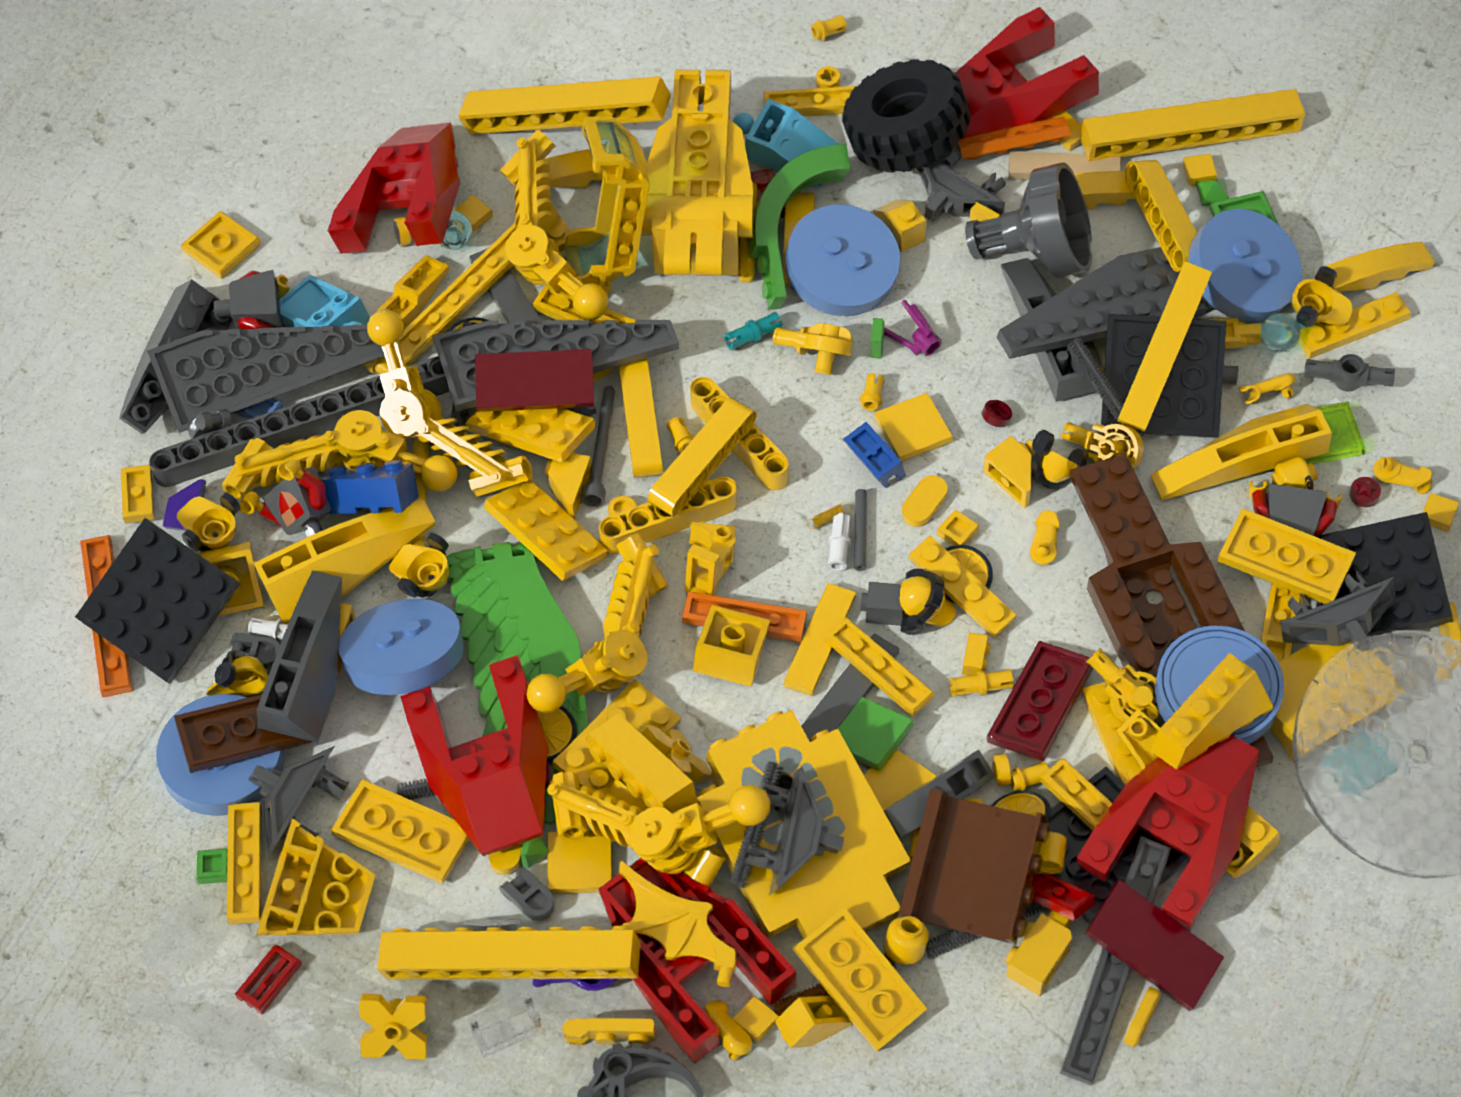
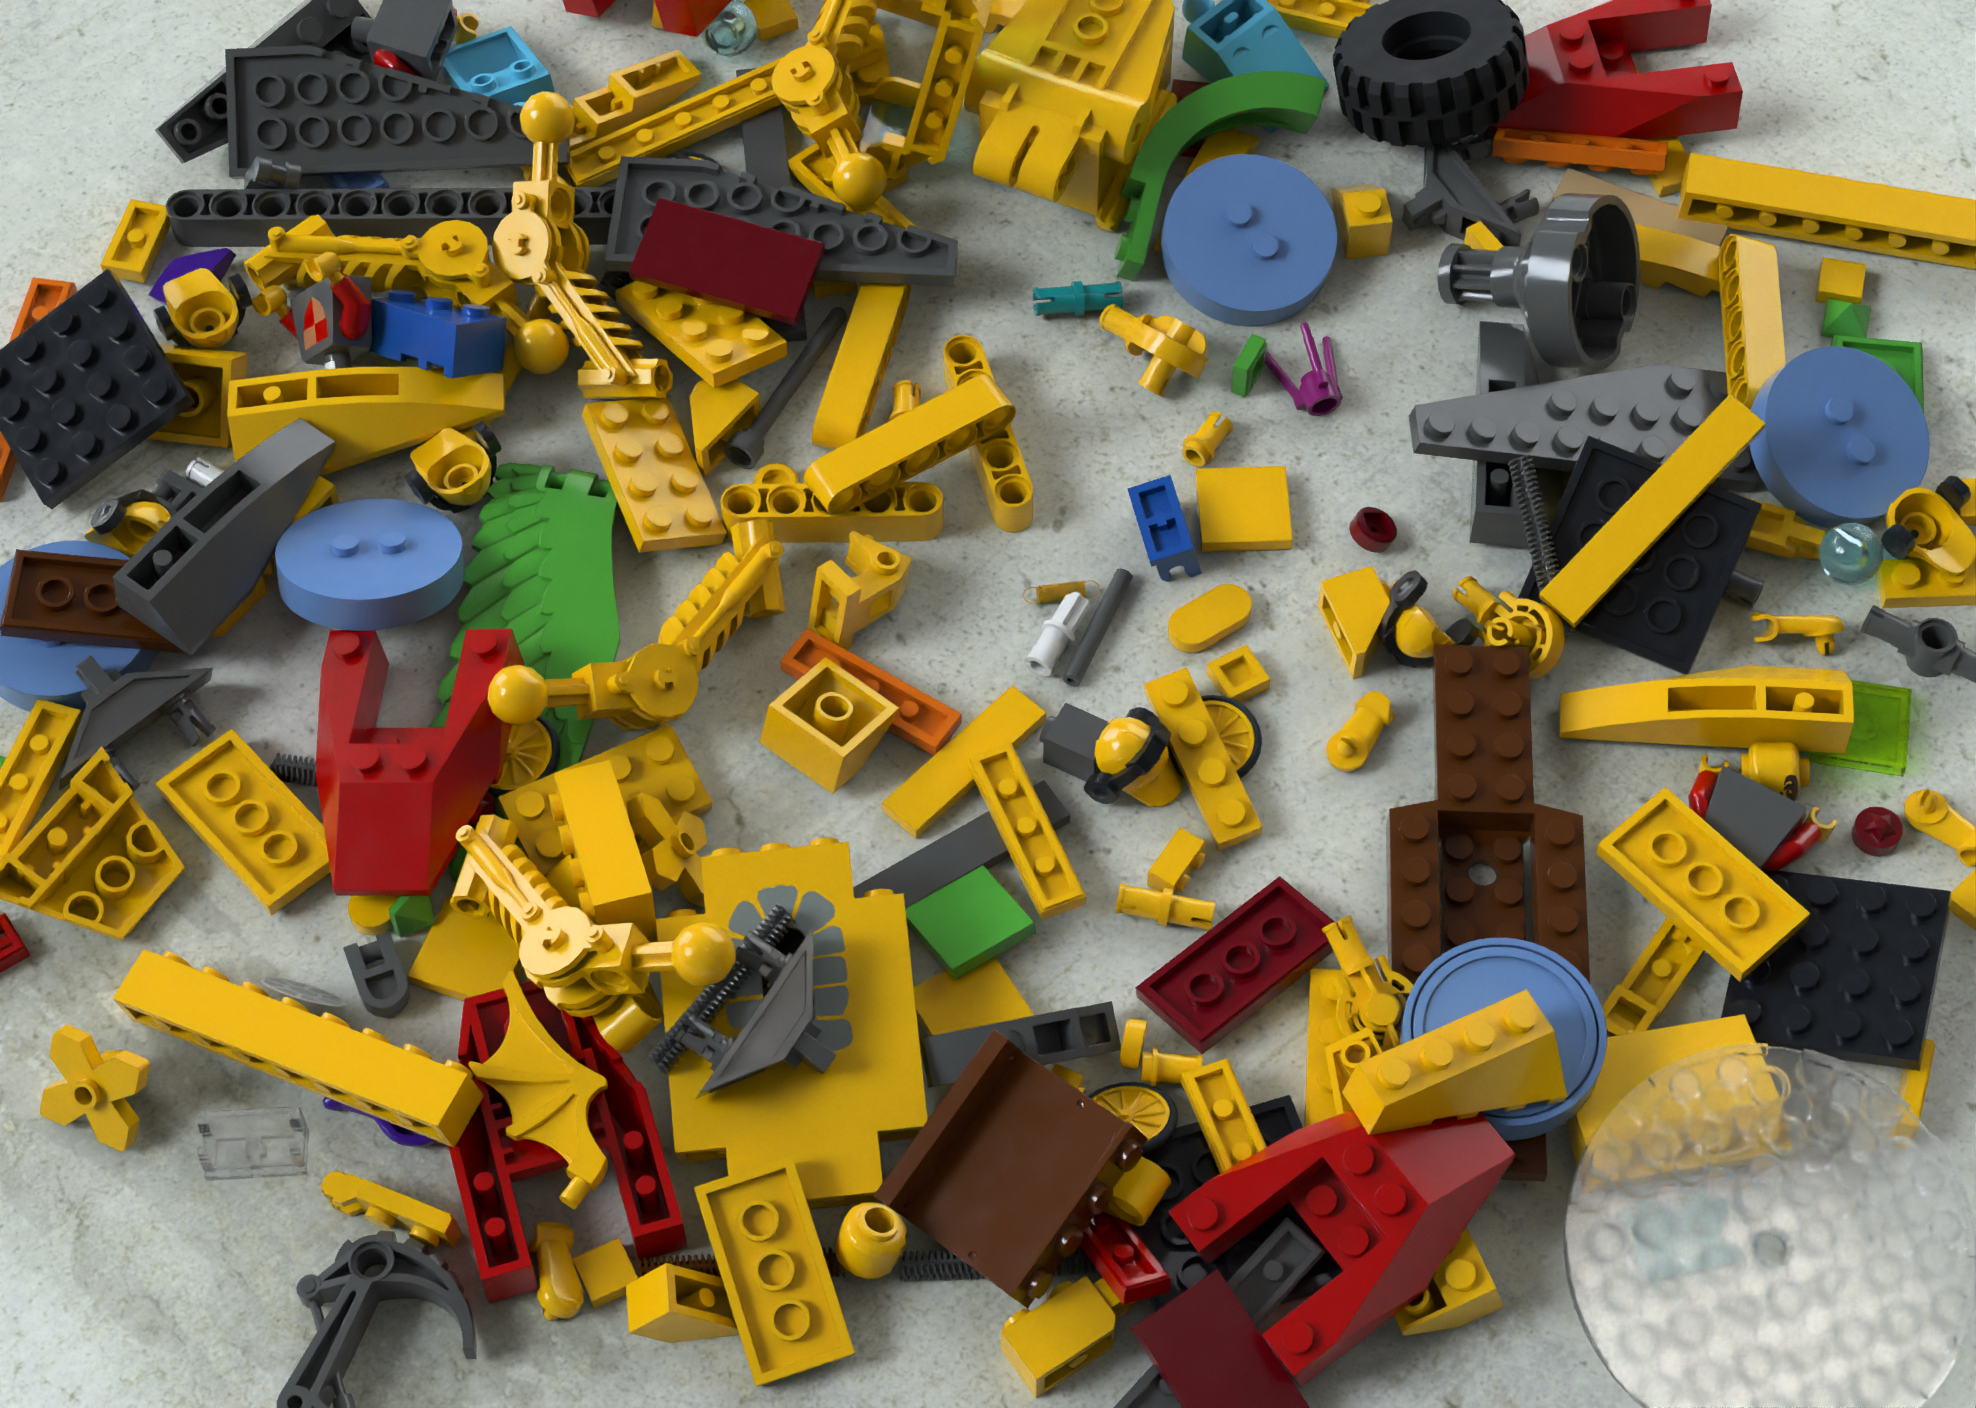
camera: 20 degrees right, 0 degrees up
(1342, 619) = (1744, 1004): dark grey connector -> none

